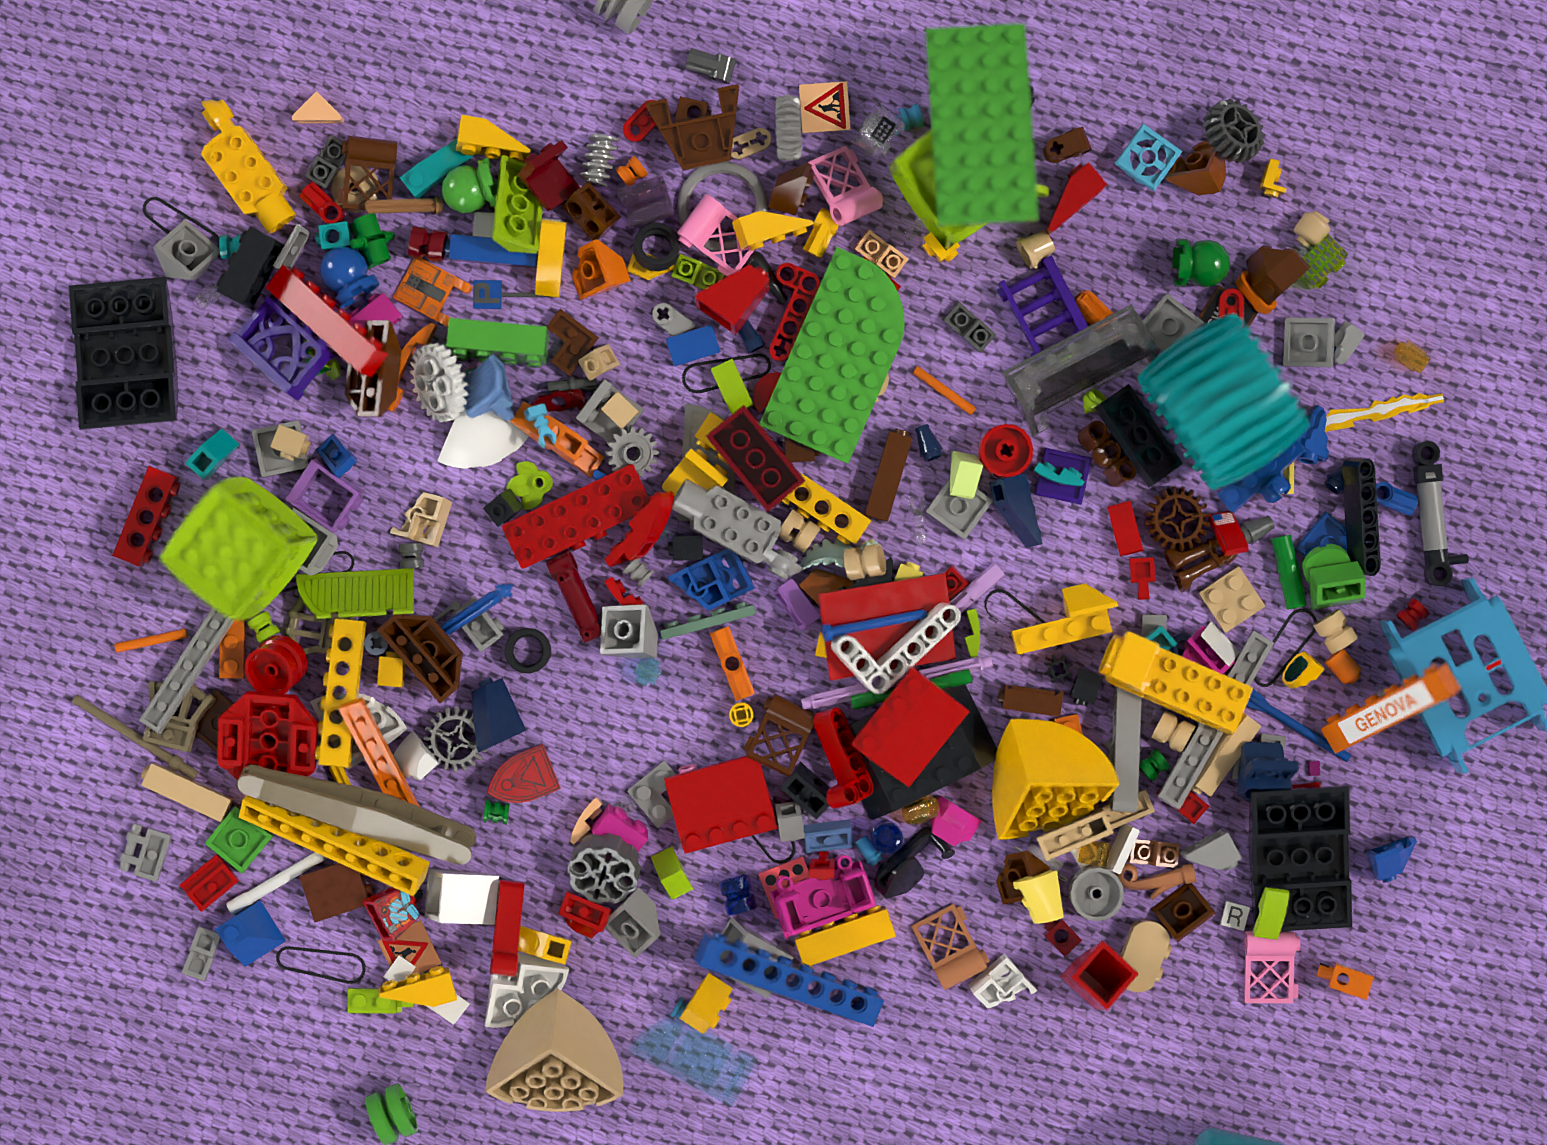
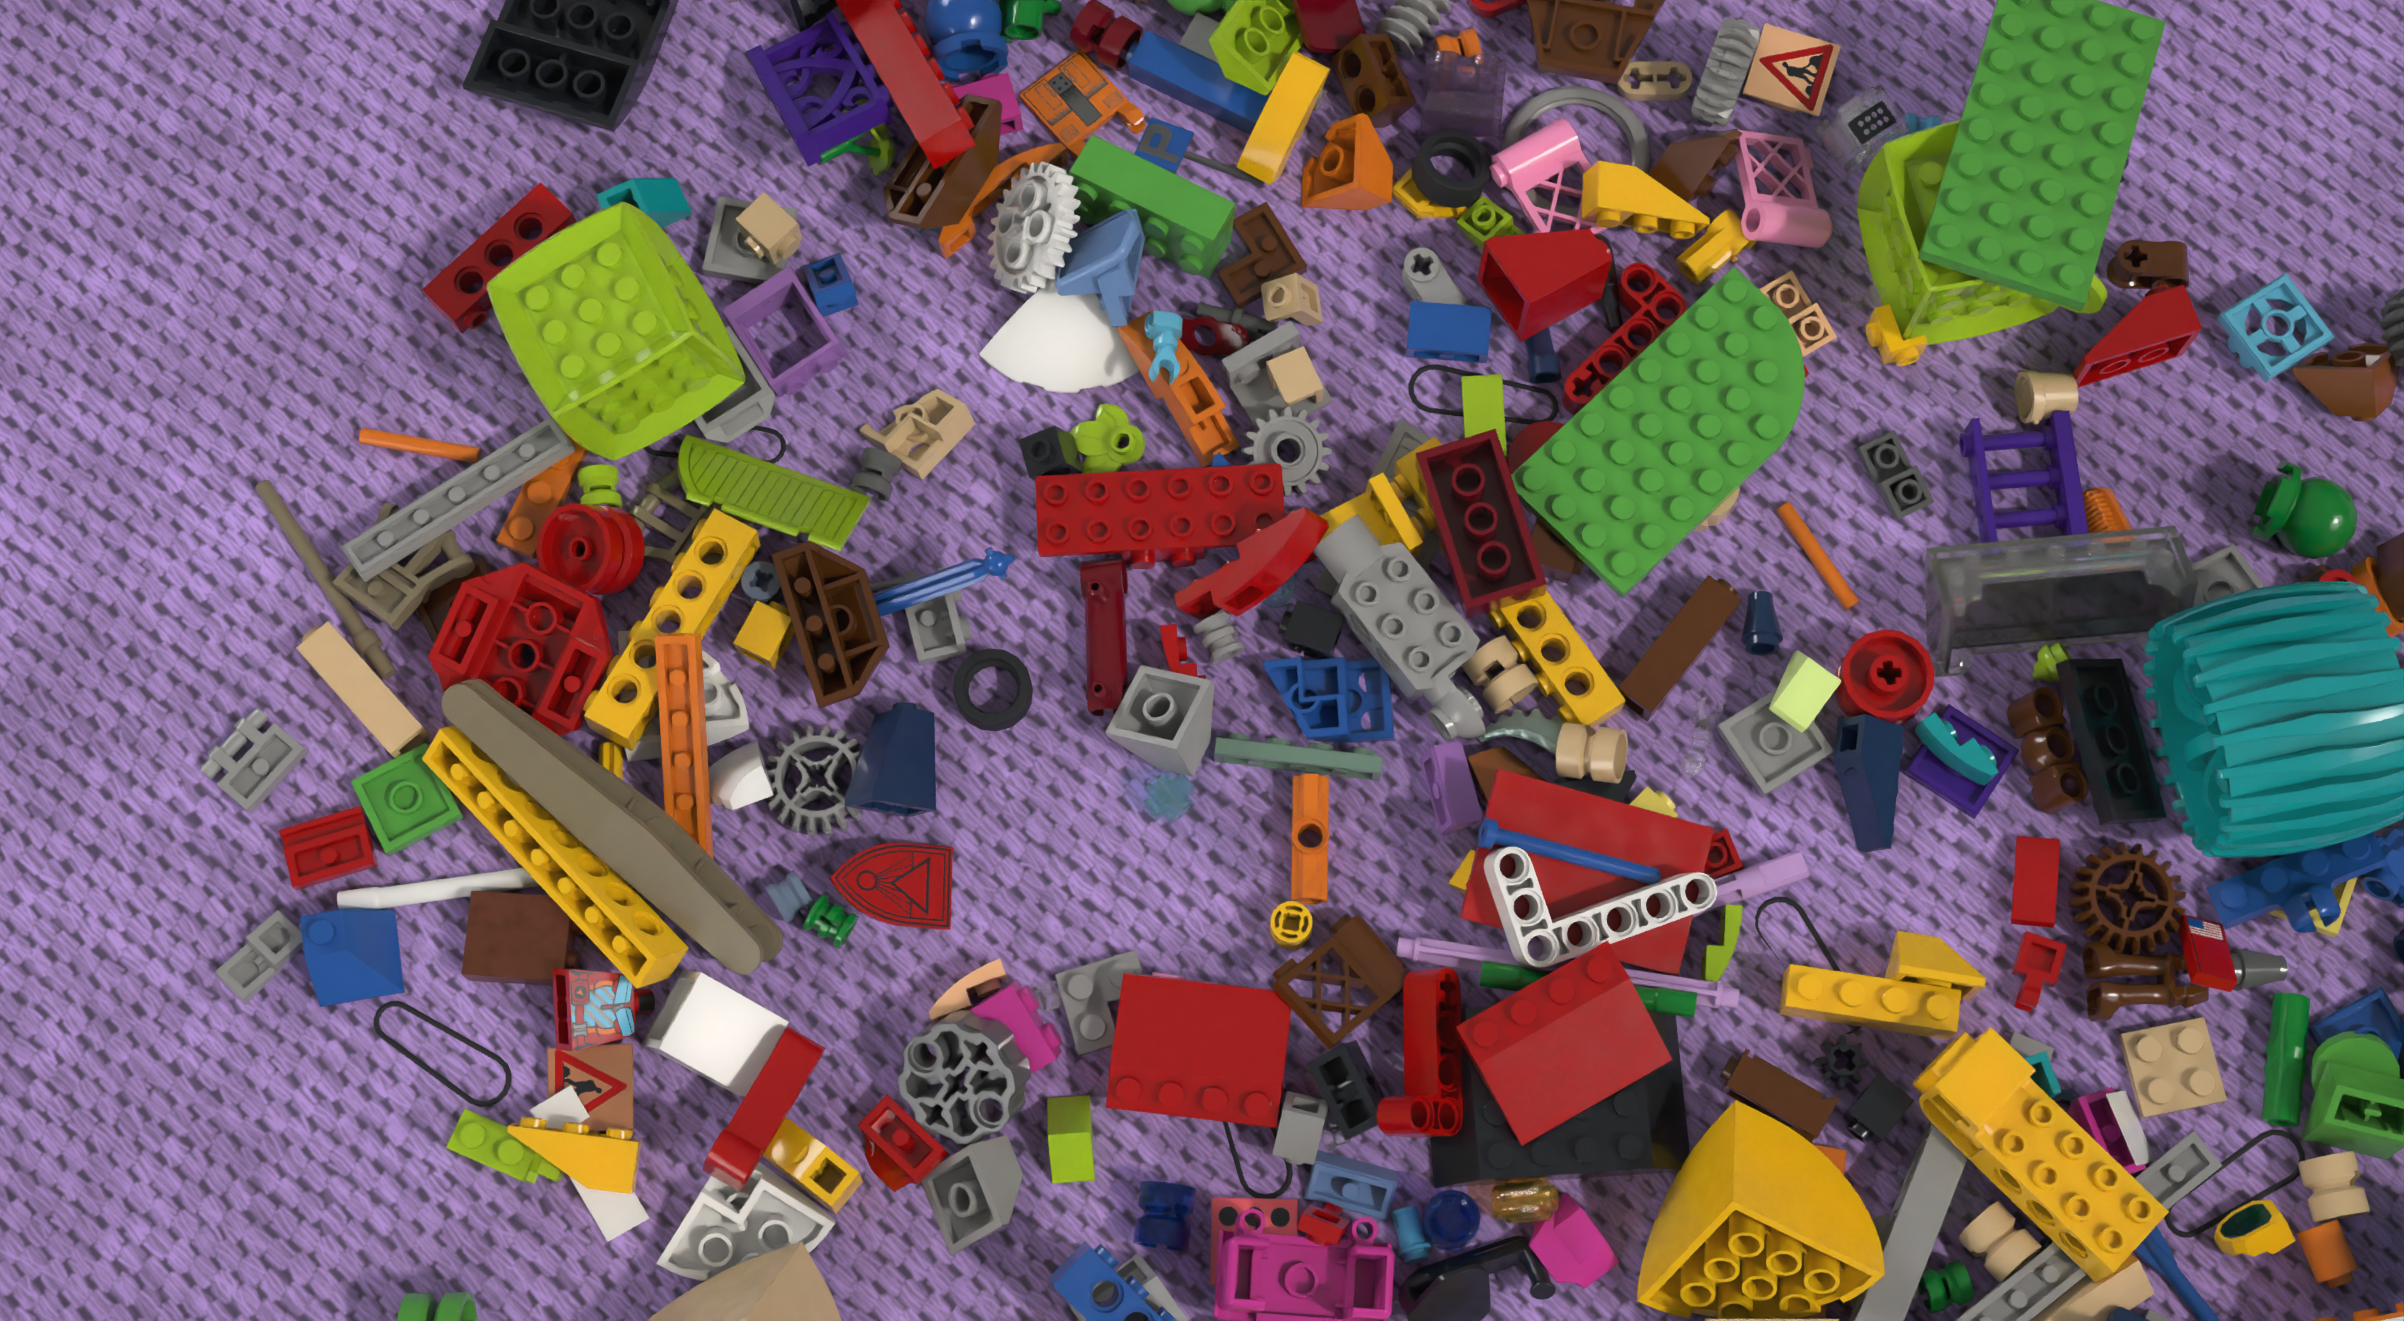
camera: 30 degrees right, 15 degrees down
(468, 807) = (790, 896): none -> sand blue wheel

